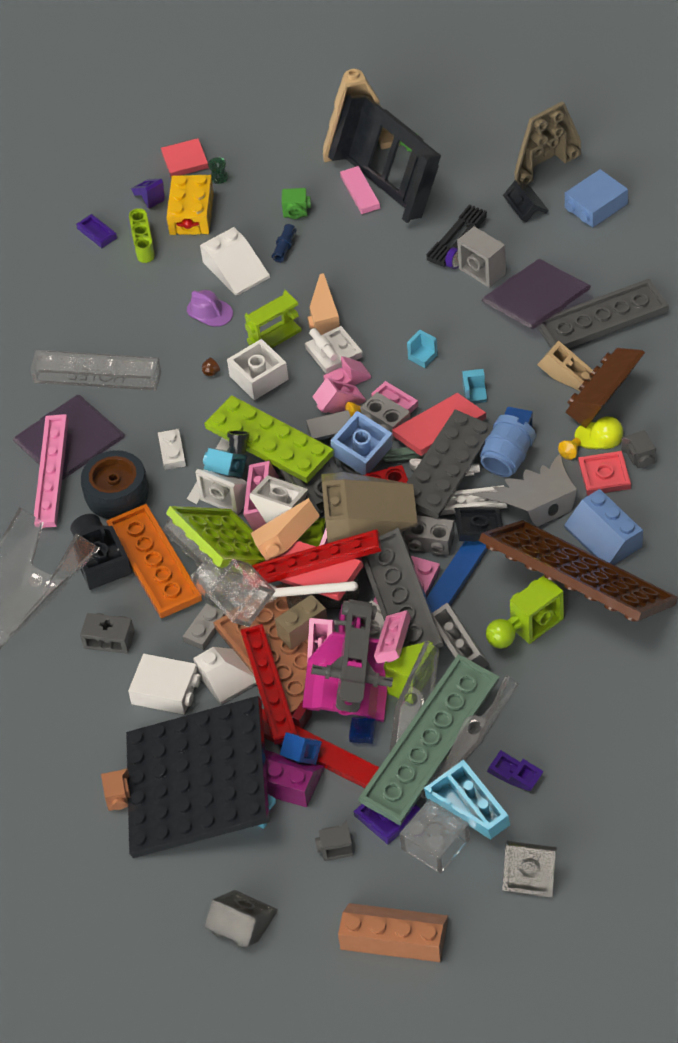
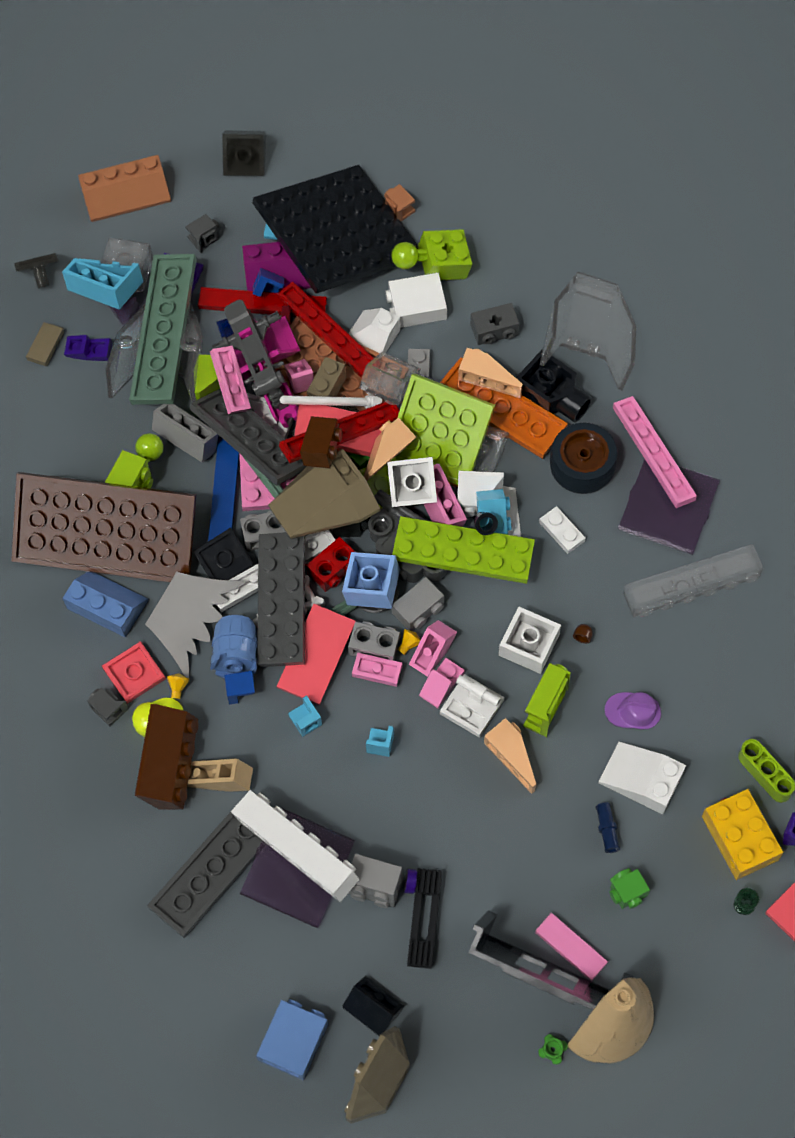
camera: 150 degrees right, 15 degrees up
(113, 707) = (440, 253): none -> lime brick
(153, 584) = (486, 372): none -> light nougat slope
(342, 524) = (321, 442): none -> reddish brown brick
(532, 281) = (296, 846): none -> white brick
(558, 794) = (45, 344): none -> dark tan tile

